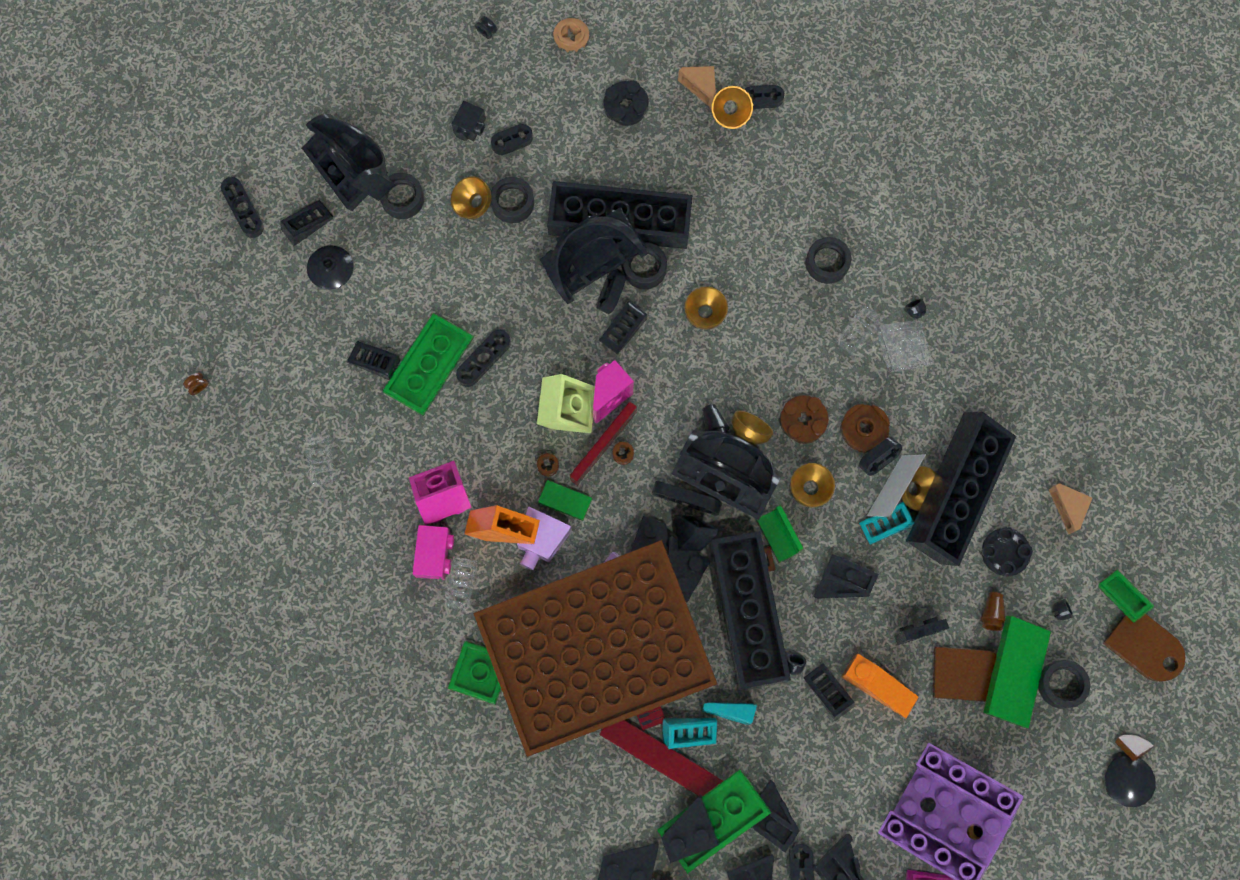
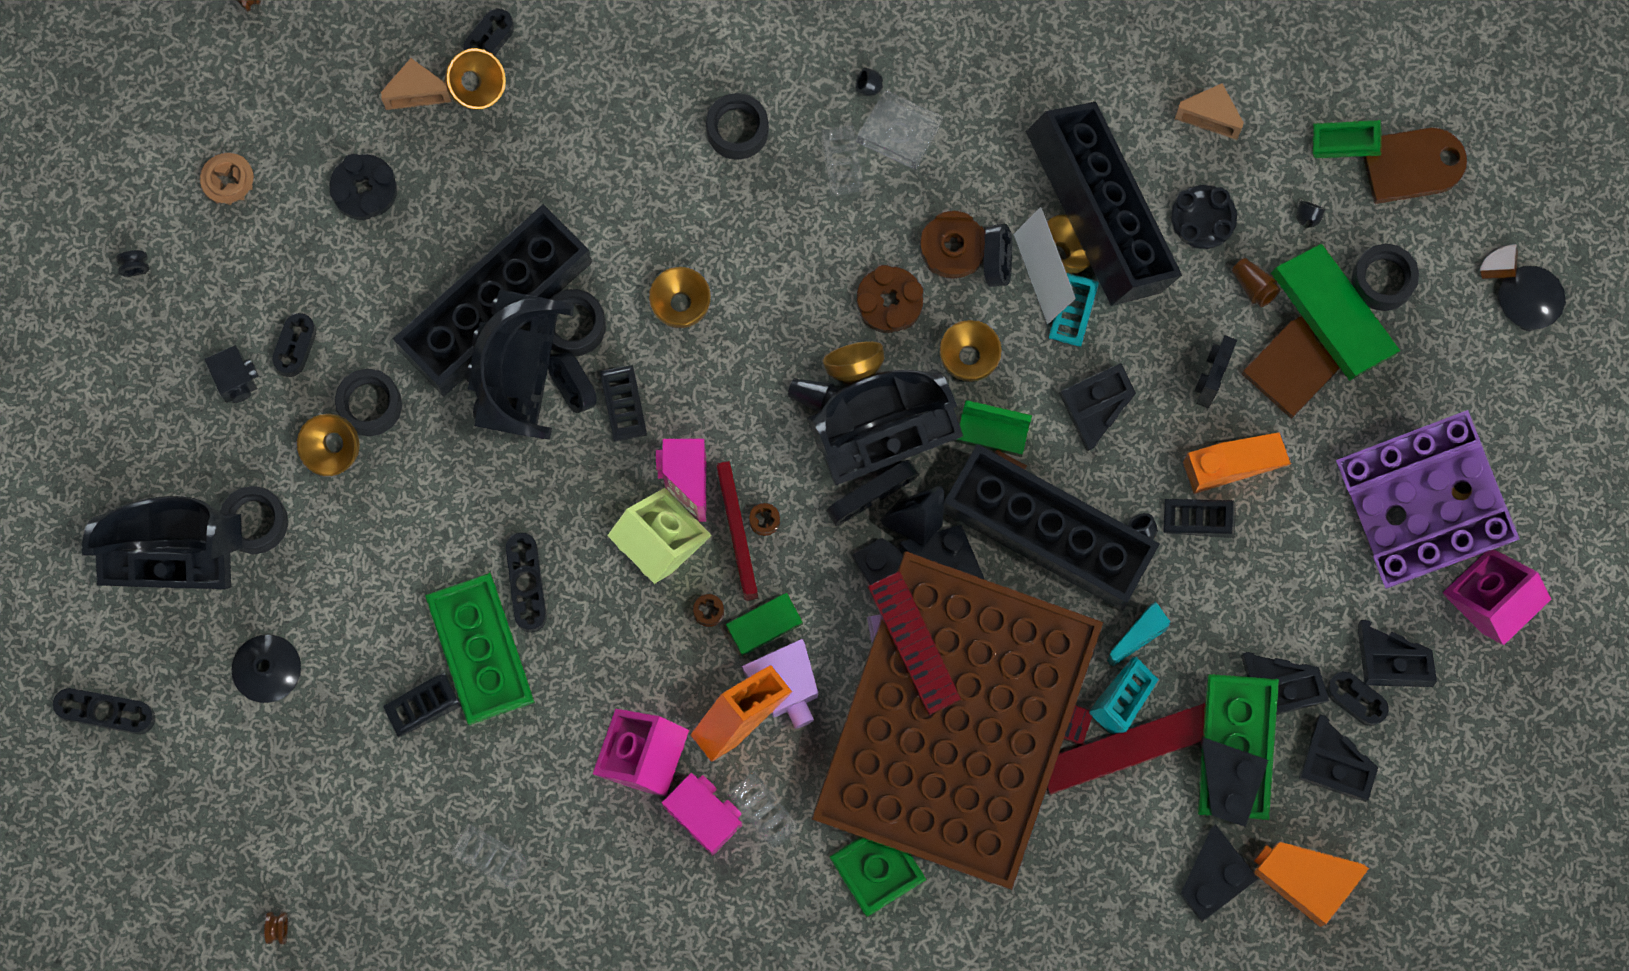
camera: 50 degrees left, 0 degrees up
(303, 232) = (196, 671): black slope -> none
(614, 587) = (914, 643): none -> dark red tile

